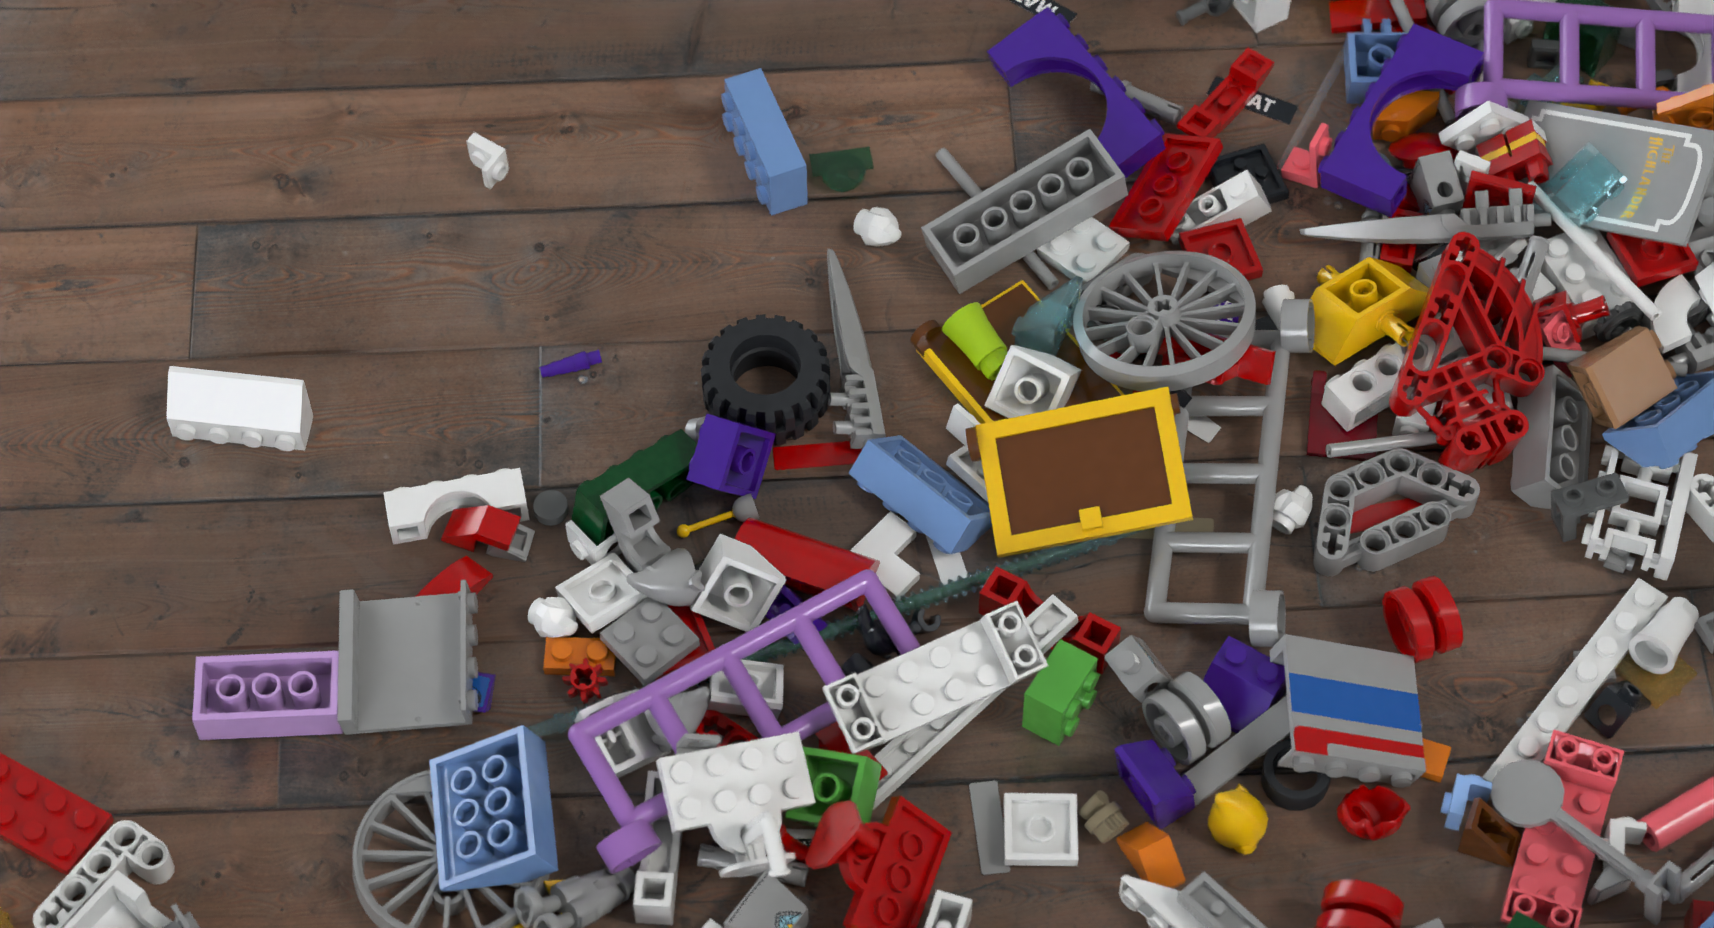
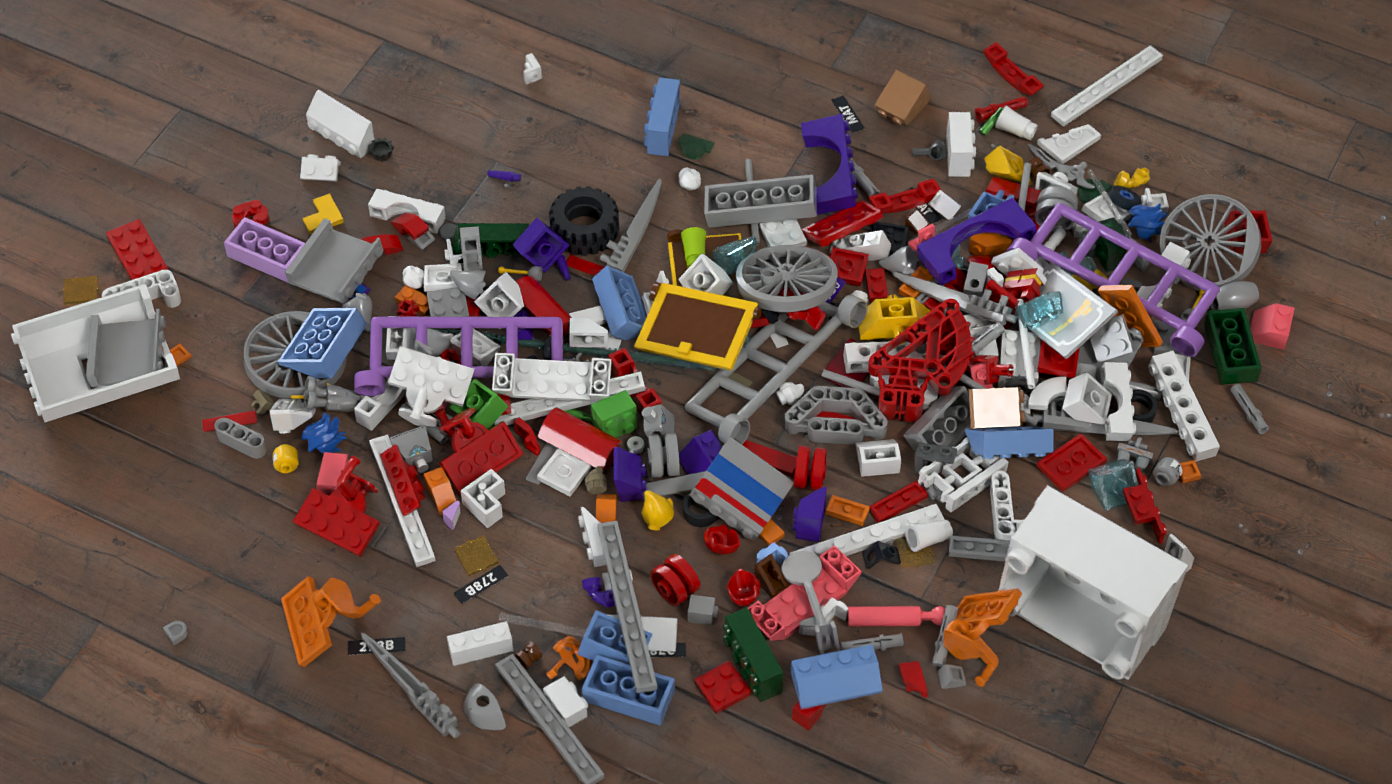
camera: 30 degrees right, 5 degrees down
(184, 631) = (252, 208): none -> red plate
(253, 503) = (319, 168): none -> white bracket
(322, 582) = (326, 209): none -> yellow tile
(334, 417) = (381, 149): none -> pearl dark grey piece
(505, 715) = (364, 306): none -> light grey hat
(782, 476) = (562, 264): none -> dark purple animal
(914, 571) = (587, 333): none -> white slope
(936, 793) = (526, 432): none -> red slope
(994, 716) = (580, 414): none -> bright green pin
(1031, 760) = (579, 438): none -> red brick
(1115, 730) = (635, 445): none -> white piece
(1271, 131) = (916, 221): none -> slope
(1284, 262) = (876, 284): none -> red plate
(1291, 82) = (944, 205): none -> white panel
(1299, 208) = (902, 261): none -> light grey hat
(1342, 250) = (921, 273): none -> orange plate
(1356, 629) = (780, 461): none -> red tile
(1464, 876) = (743, 588): none -> red hair
(1484, 700) = (810, 516): none -> dark purple slope
(1499, 544) = (878, 457): none -> white slope
(1516, 658) = (847, 510): none -> orange plate
(1574, 604) = (898, 502): none -> red tile

